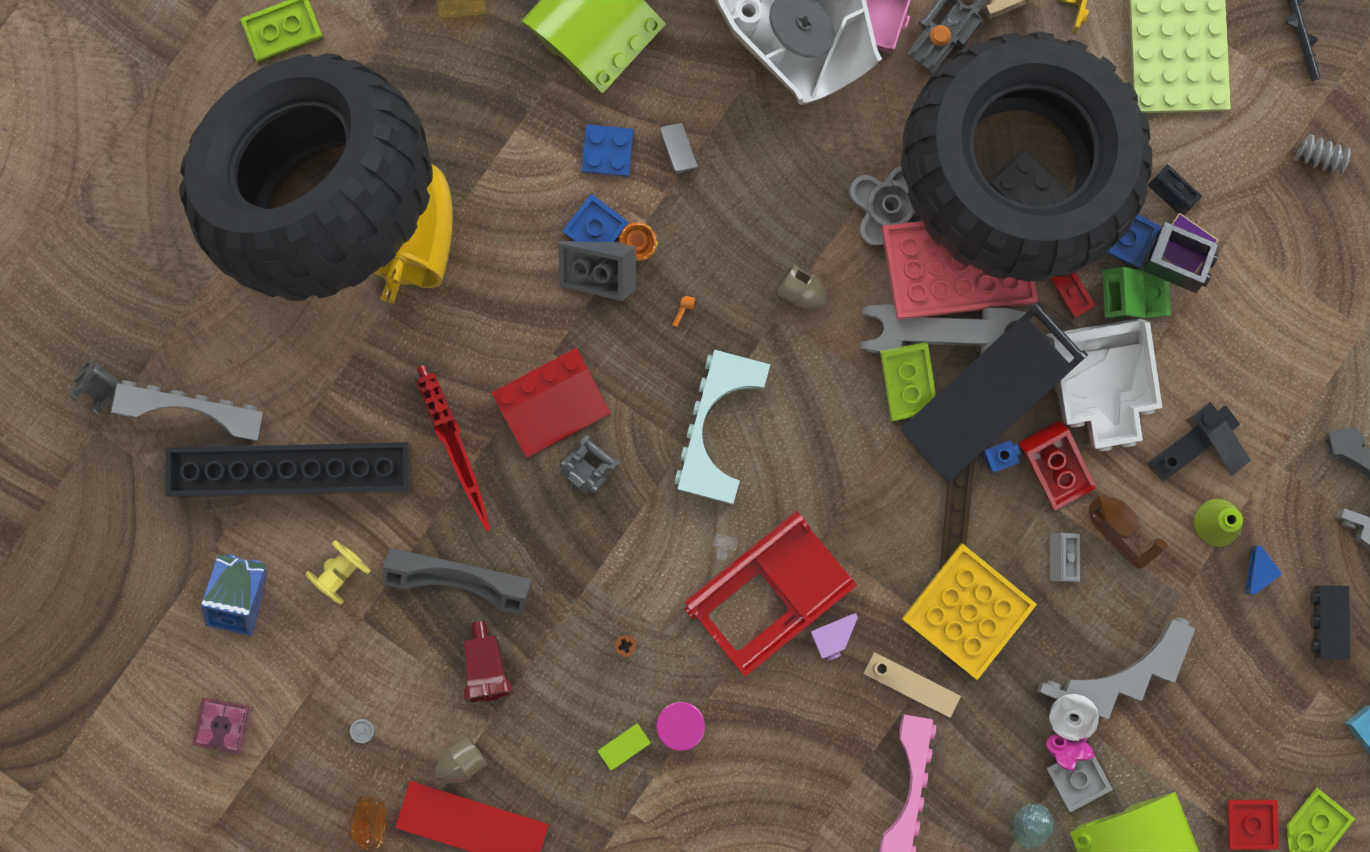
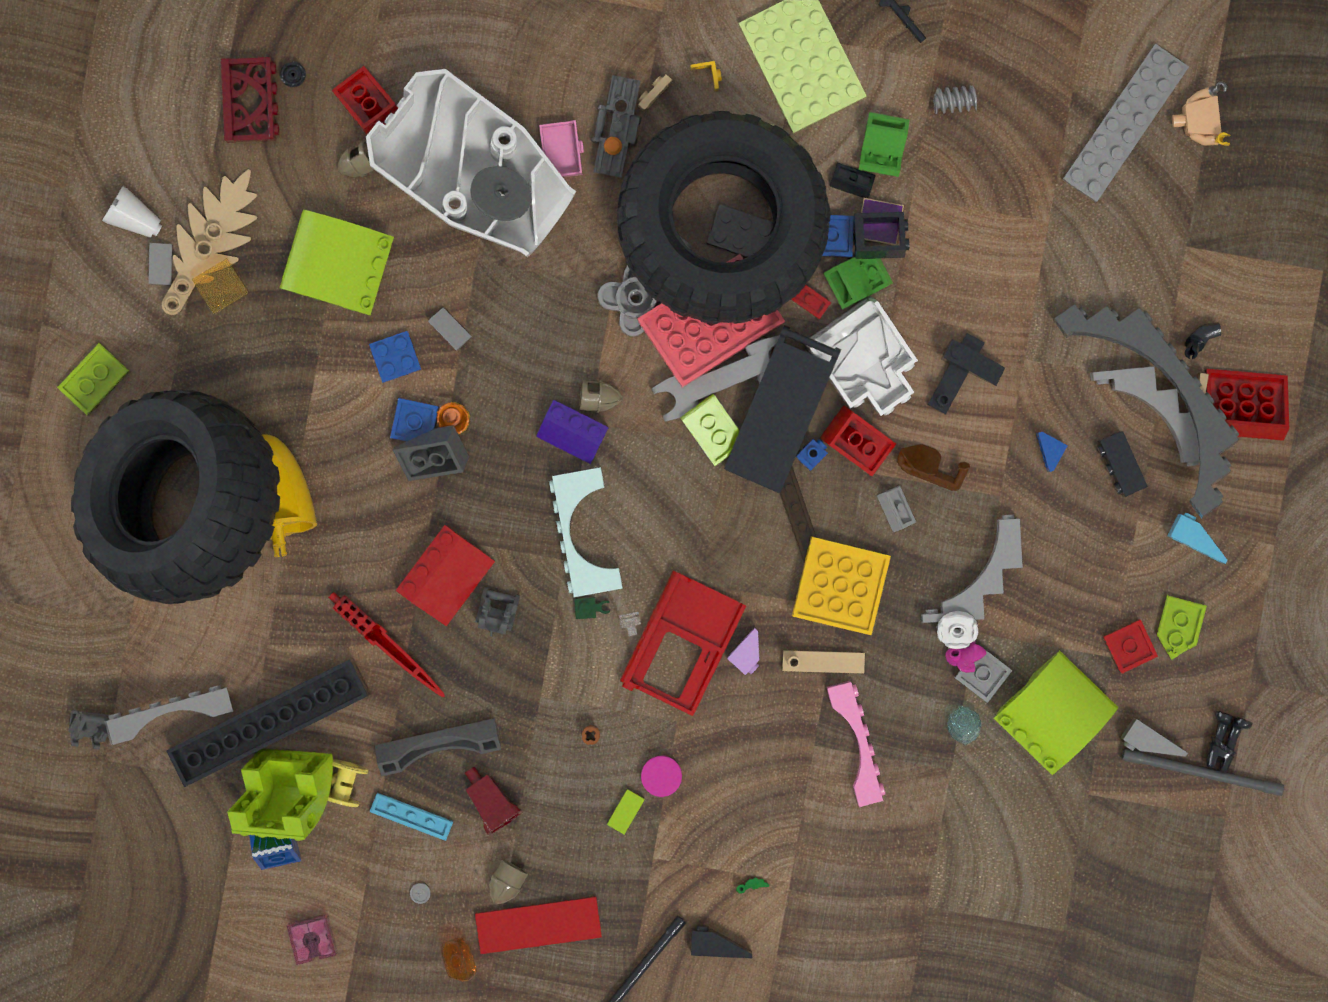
camera: 30 degrees left, 5 degrees up
(266, 552) = (282, 794): none -> lime slope
(392, 643) = (411, 816): none -> medium azure tile
(686, 303) = (513, 447): orange hand -> none
(686, 508) = (587, 608): none -> dark green plate
(757, 314) = (572, 432): none -> dark purple slope
(1218, 522) = (994, 429): lime cone -> none
(1227, 166) = (883, 144): none -> bright green piece

